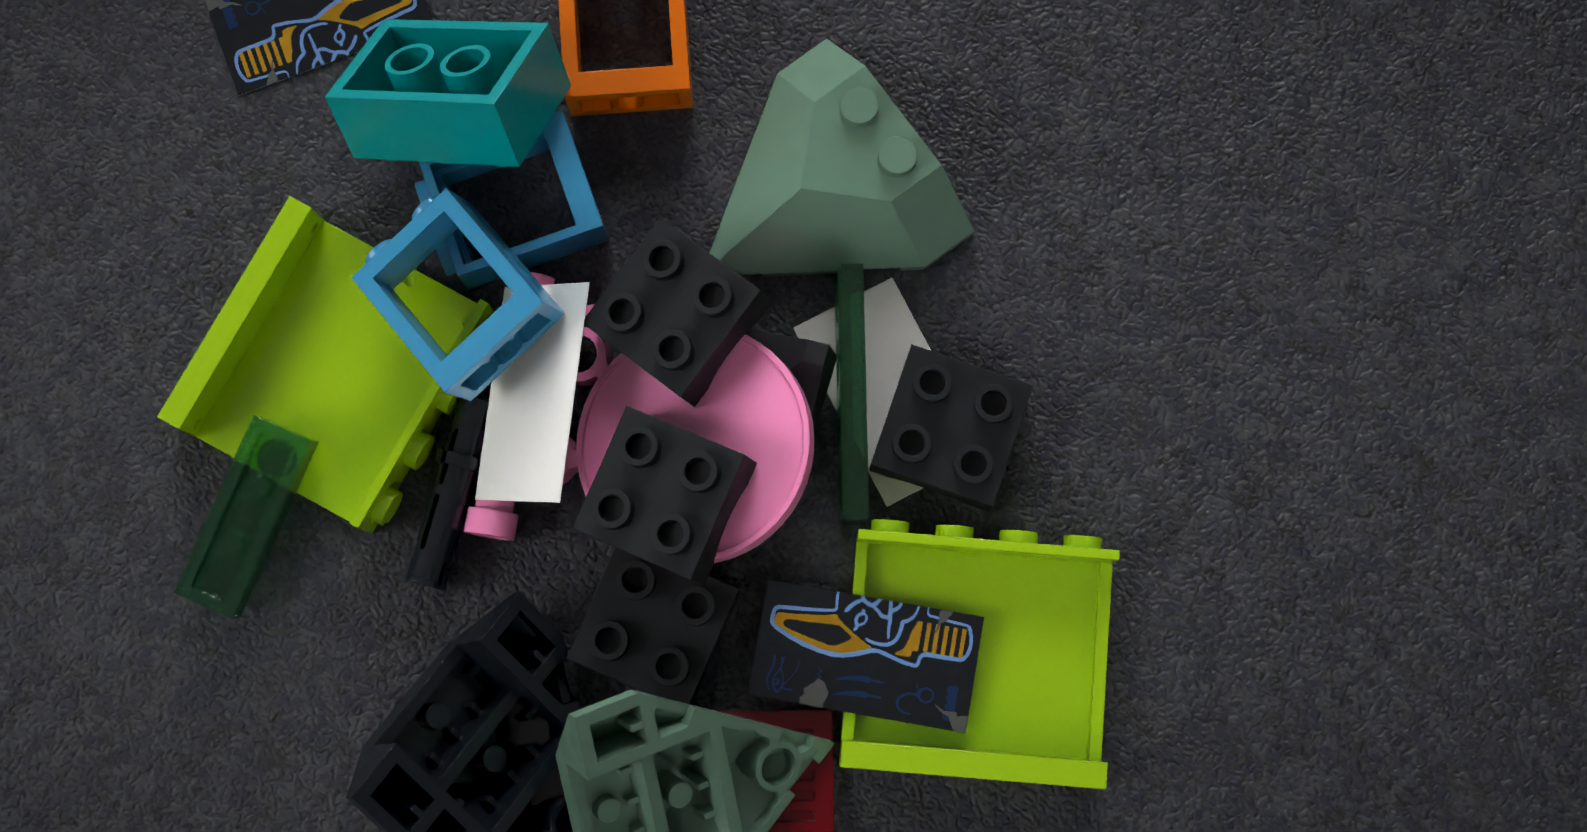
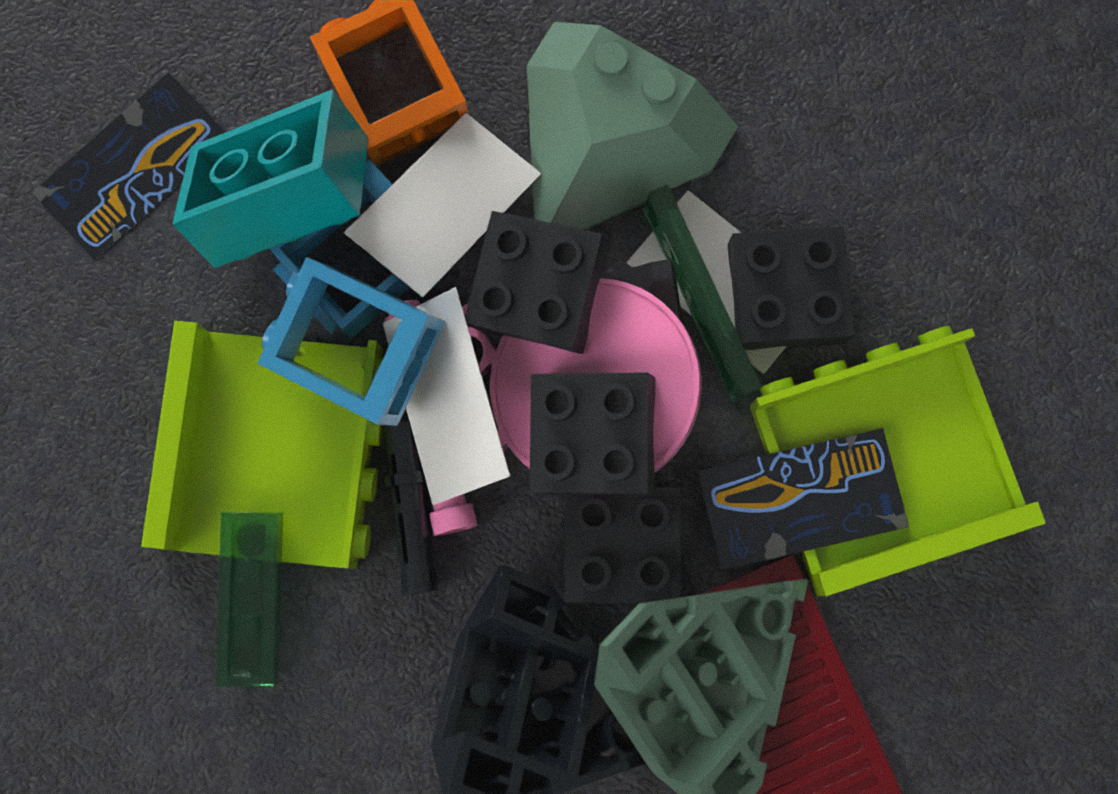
camera: 20 degrees left, 0 degrees up
(619, 187) = (442, 204): none -> white sticker

